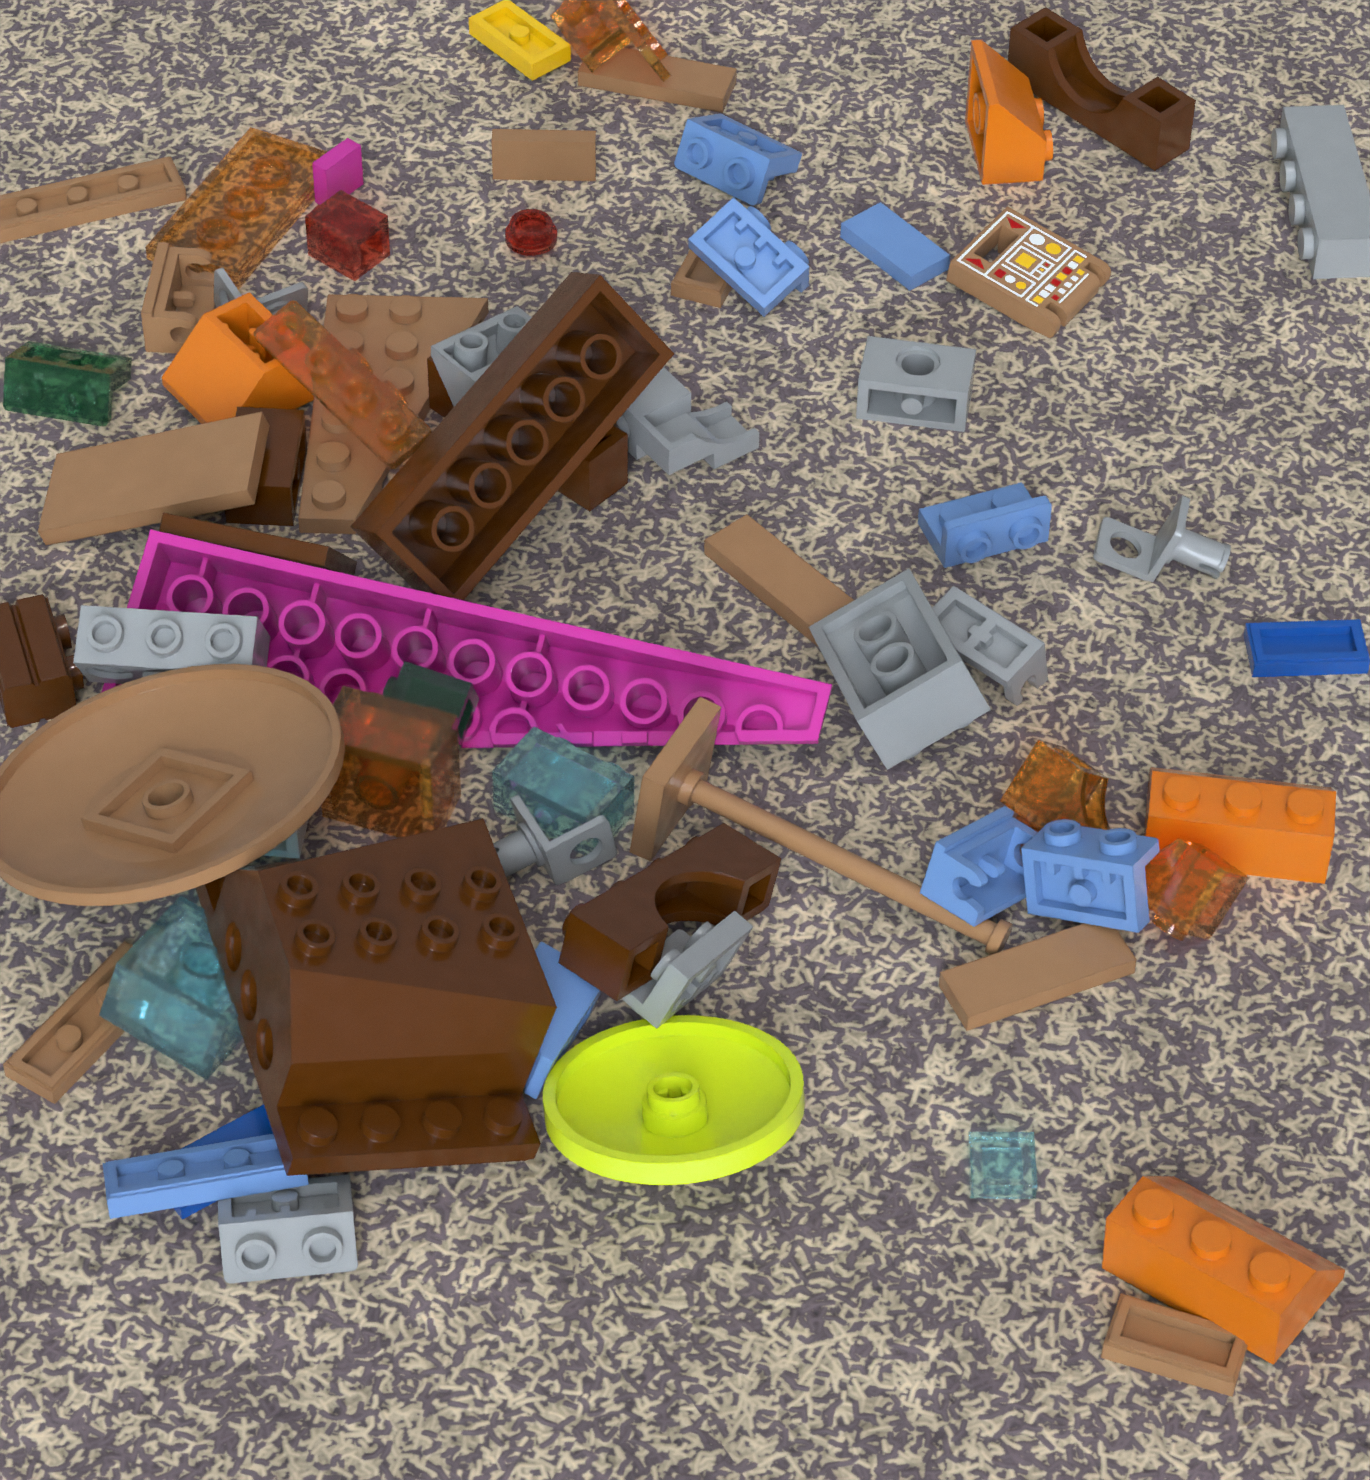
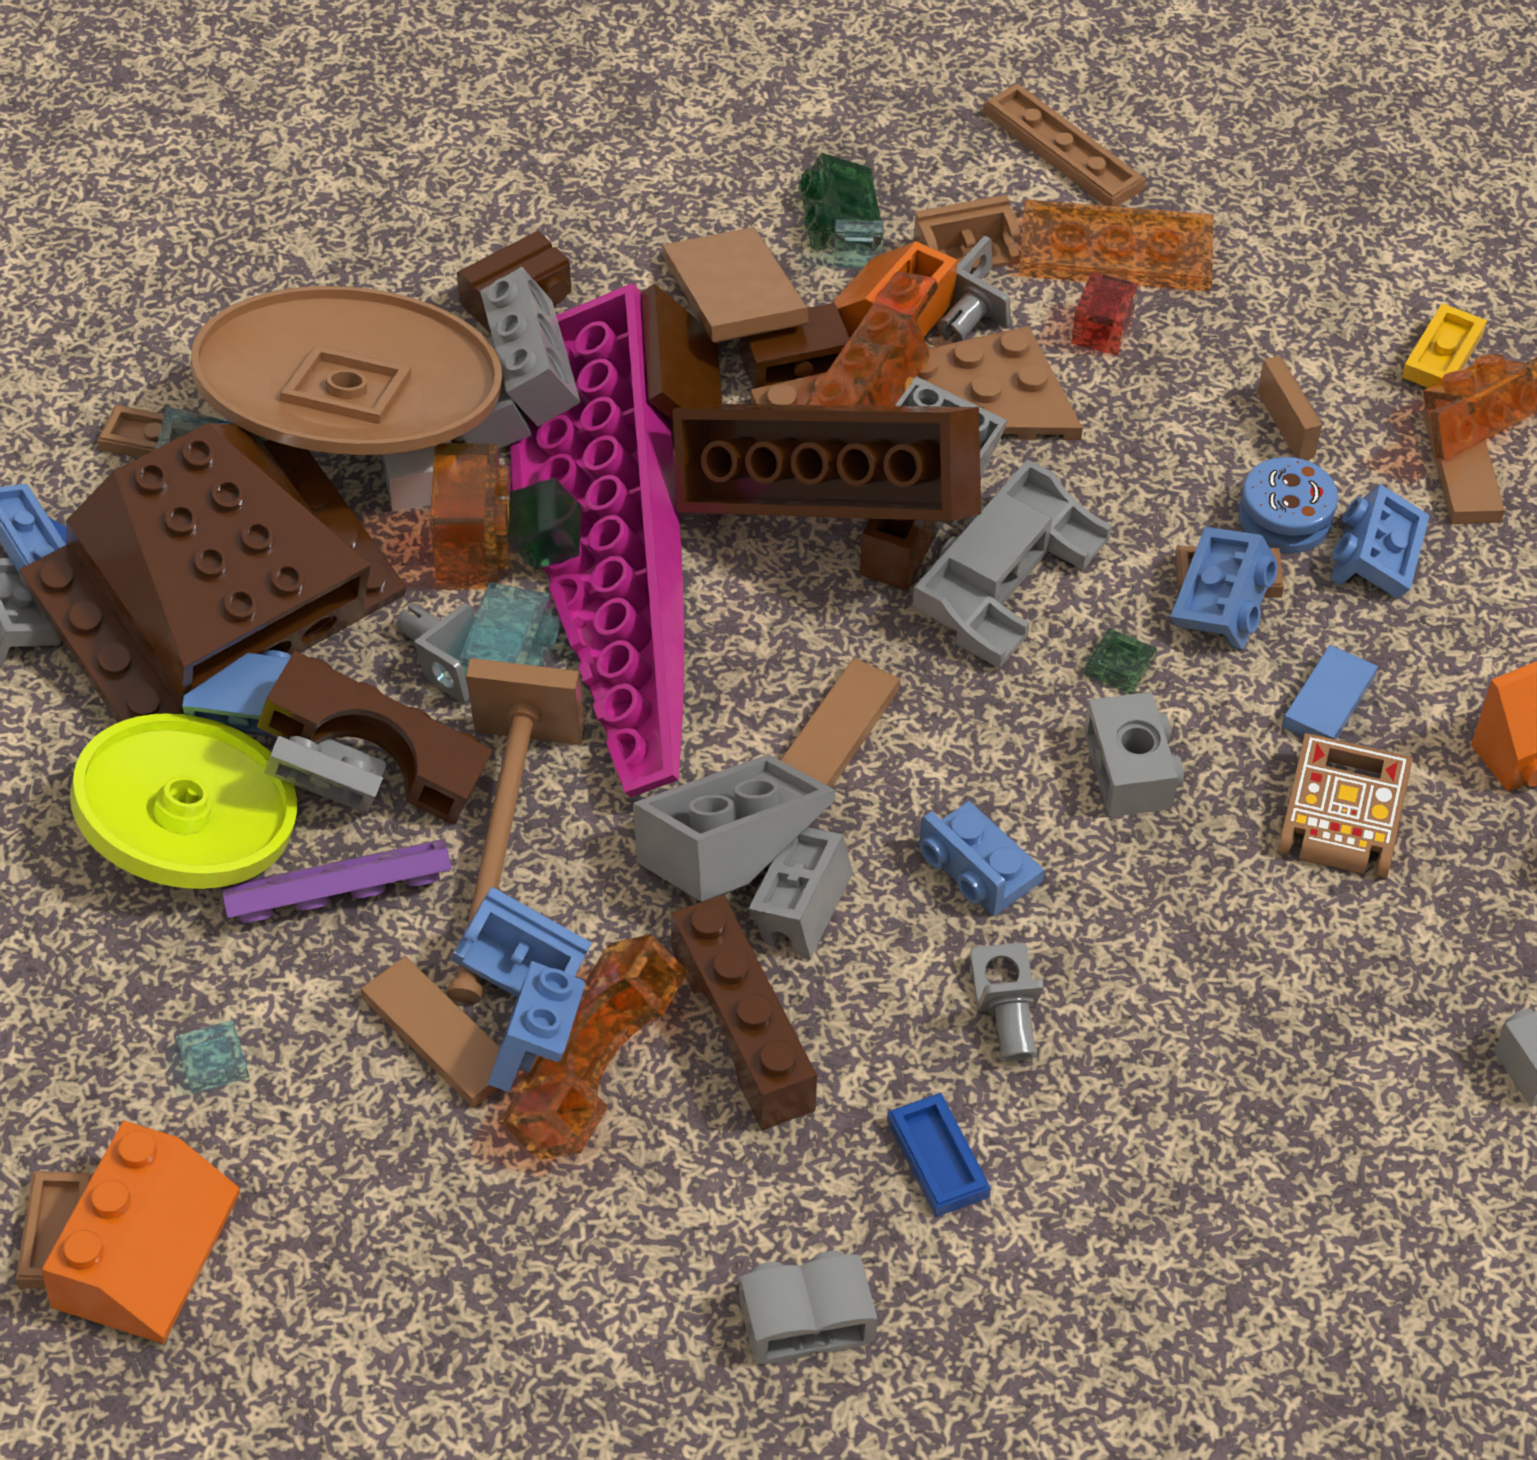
camera: 70 degrees right, 5 degrees up
(139, 378) = (857, 242): none -> clear light blue tile
(338, 170) = (1180, 283): dark pink tile -> none
(531, 232) = (1187, 433): clear red plate -> none
(660, 195) = (1288, 504): none -> medium blue head
(788, 365) = (1121, 661): none -> clear green tile
(822, 997) = (360, 875): none -> medium lavender plate
(1183, 718) = (760, 1037): none -> reddish brown arch
(1248, 822) = (679, 1137): orange slope -> none

